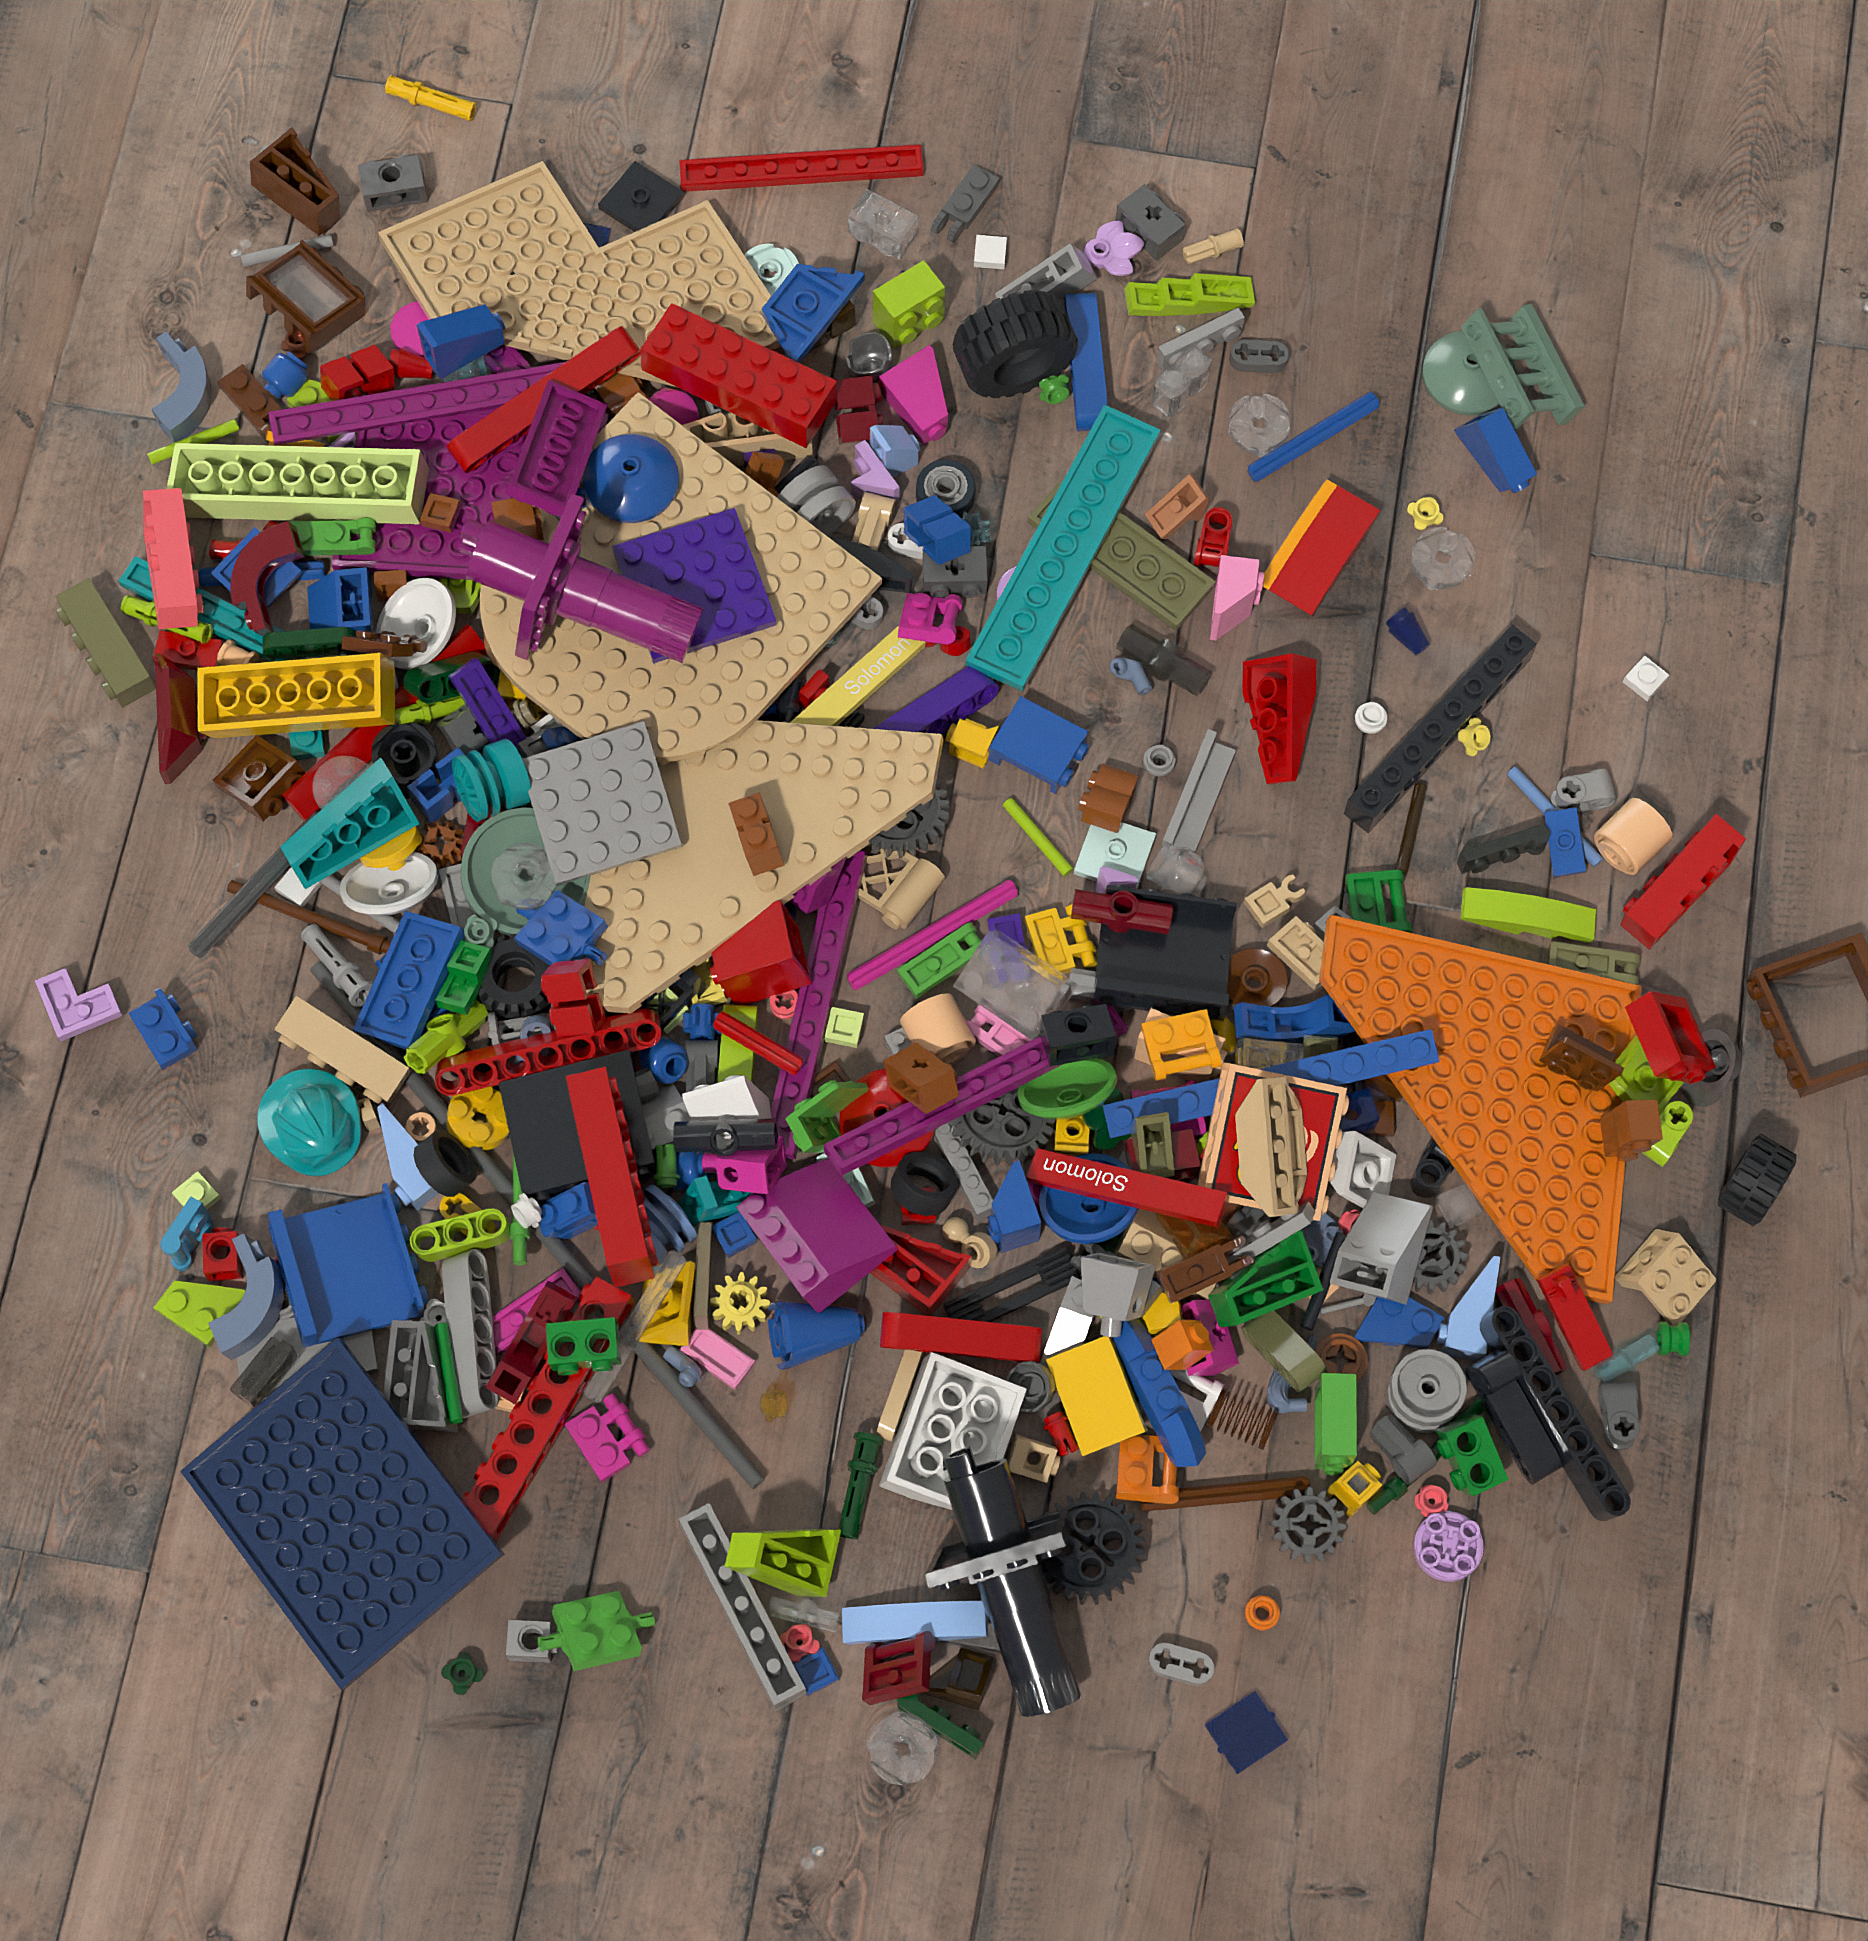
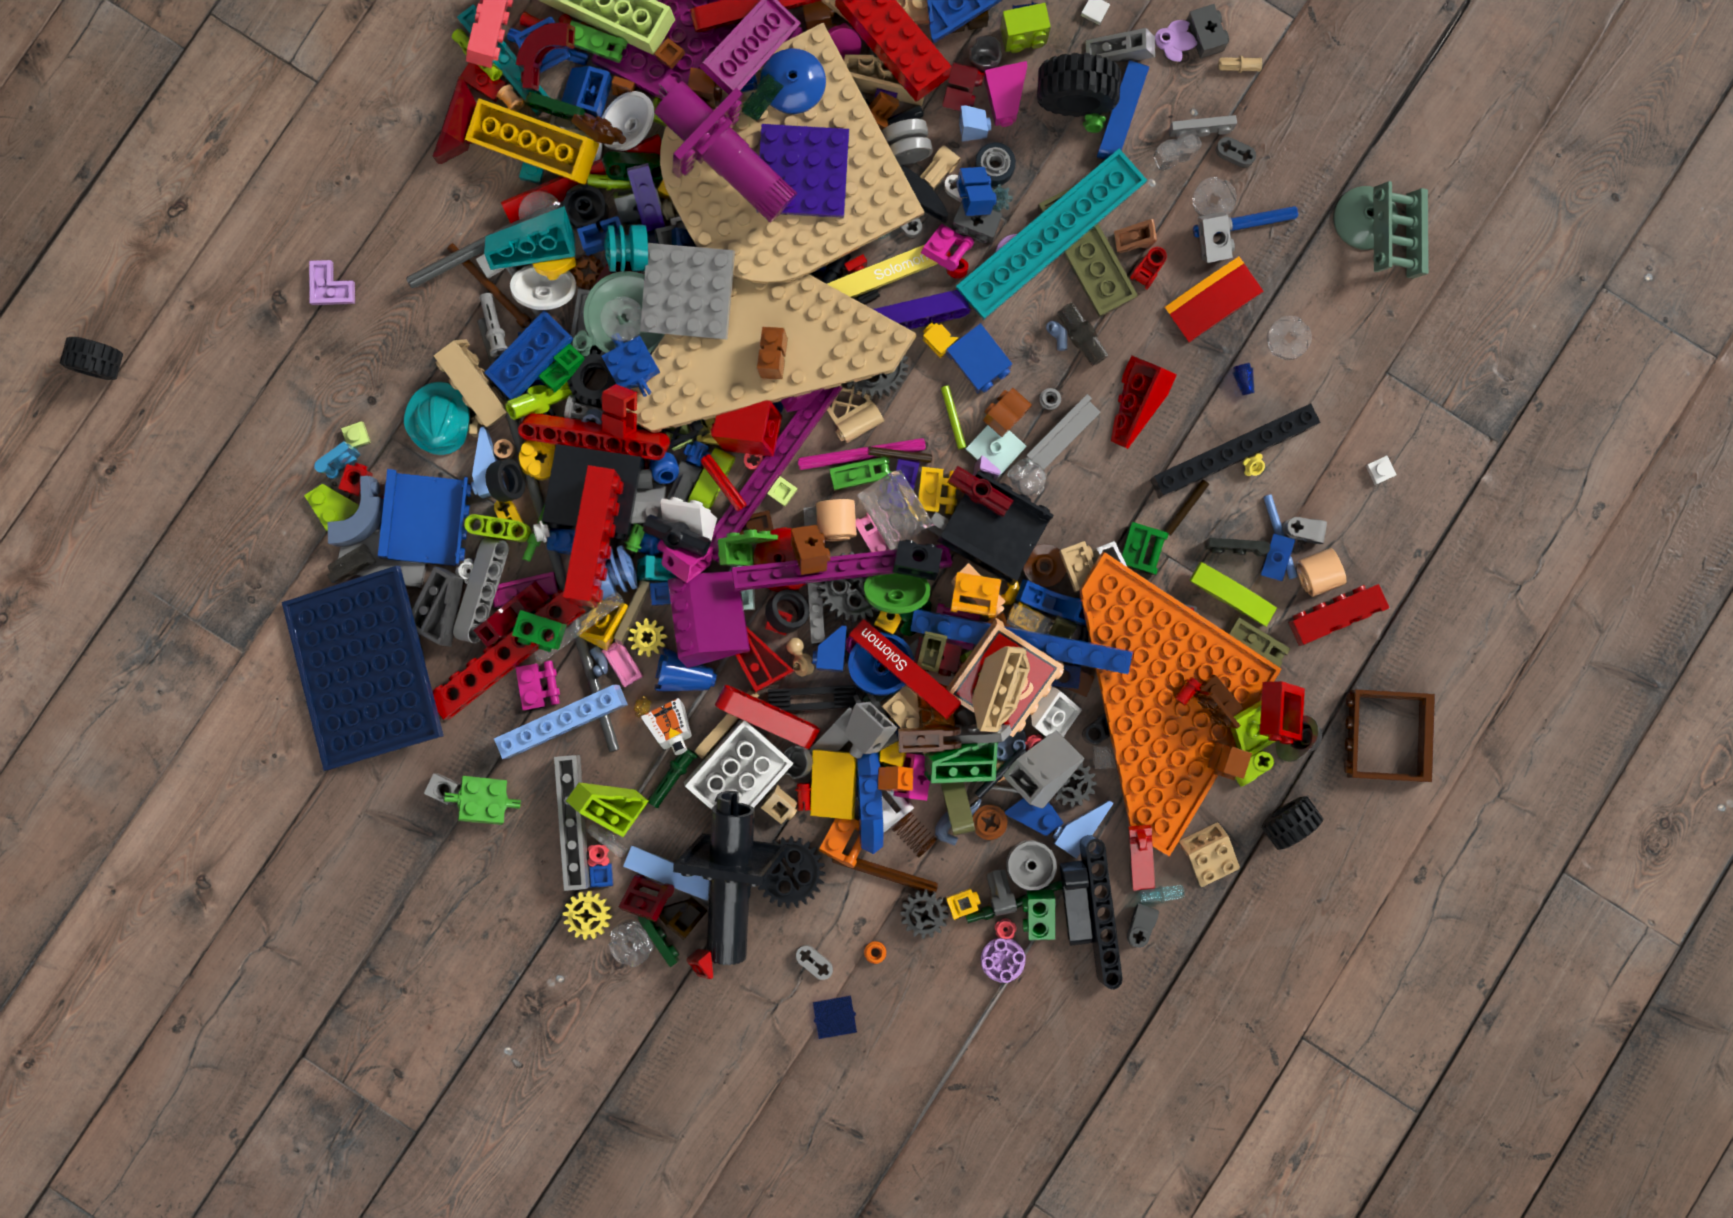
camera: 25 degrees right, 15 degrees up
(105, 642) = (433, 55): olive brick -> none
(163, 1030) = (375, 323): blue bracket -> none
(259, 777) = (493, 184): reddish brown plate -> none
(448, 1373) = (457, 609): green bar -> none
(459, 1683) = (391, 788): dark green plate -> none
(603, 500) = (762, 98): none -> clear green hinge
(665, 1469) = (560, 721): none -> light blue brick
(804, 1739) = (587, 905): none -> light yellow gear
(824, 1412) = (669, 725): none -> torso
(873, 474) = (953, 140): lavender slope -> none
(986, 912) = (898, 454): none -> dark brown bar
(1020, 1730) = (701, 963): none -> red slope
(1189, 296) = (1210, 93): lime slope -> none
(1235, 593) = (1147, 308): bright pink slope -> none
(1268, 461) = (1208, 226): none -> light grey brick
(1271, 903) = (1077, 519): tan plate -> none
(1335, 1422) = (967, 862): bright green window -> none
(1371, 717) = (1195, 425): white plate -> none
(1427, 505) = (1297, 298): light yellow plate -> none
(1497, 450) = (1358, 280): blue slope -> none
(1516, 1296) = (1114, 849): dark red piece -> none
(1530, 1059) = (1188, 691): none -> red pin
(1673, 1338) = (1195, 894): green wheel -> none

